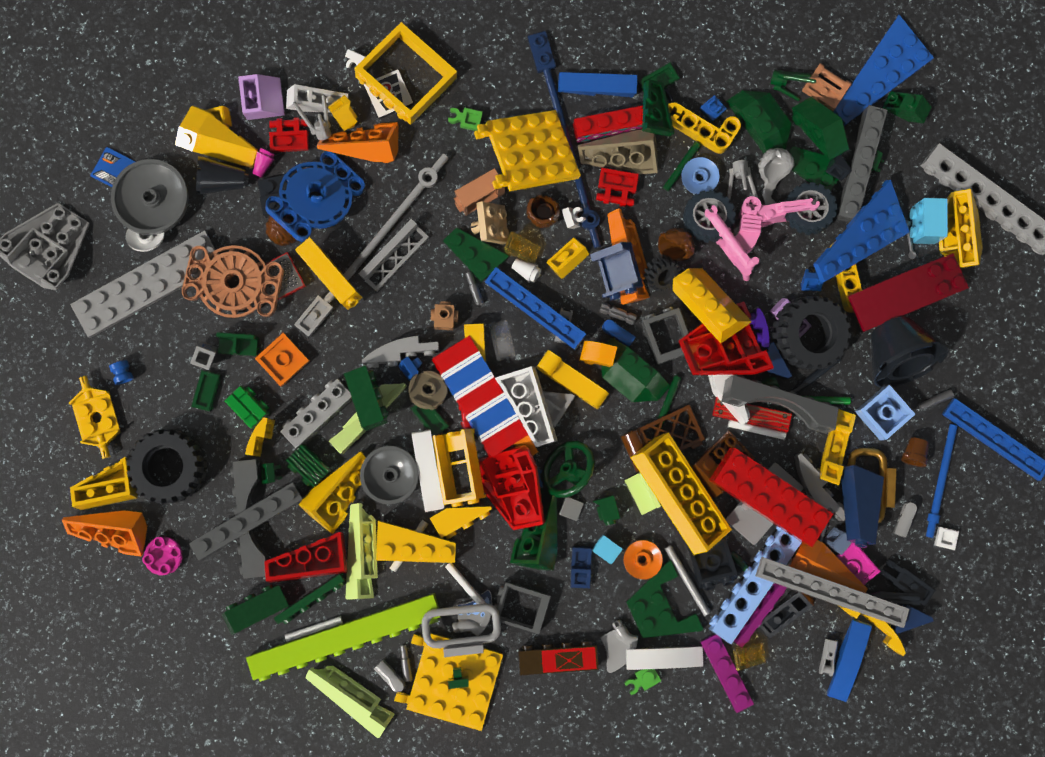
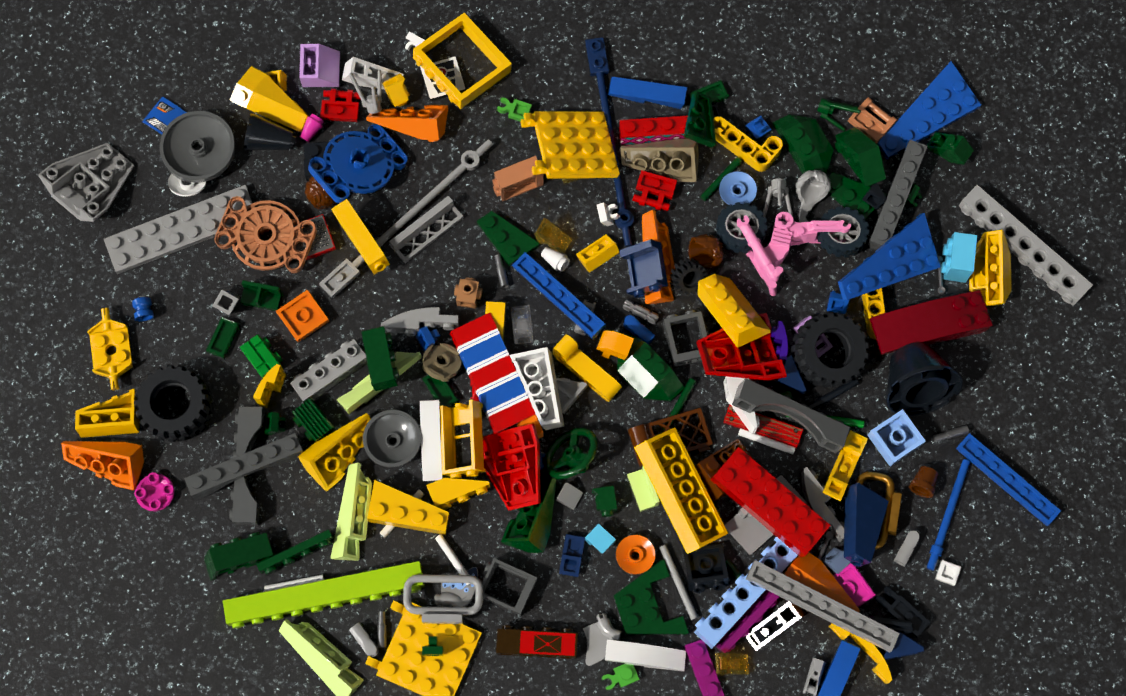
camera: 10 degrees right, 10 degrees down
(316, 559) = (300, 514): red wedge -> none
(491, 223) = (526, 208): tan plate -> none
(543, 211) = (578, 204): reddish brown hair -> none

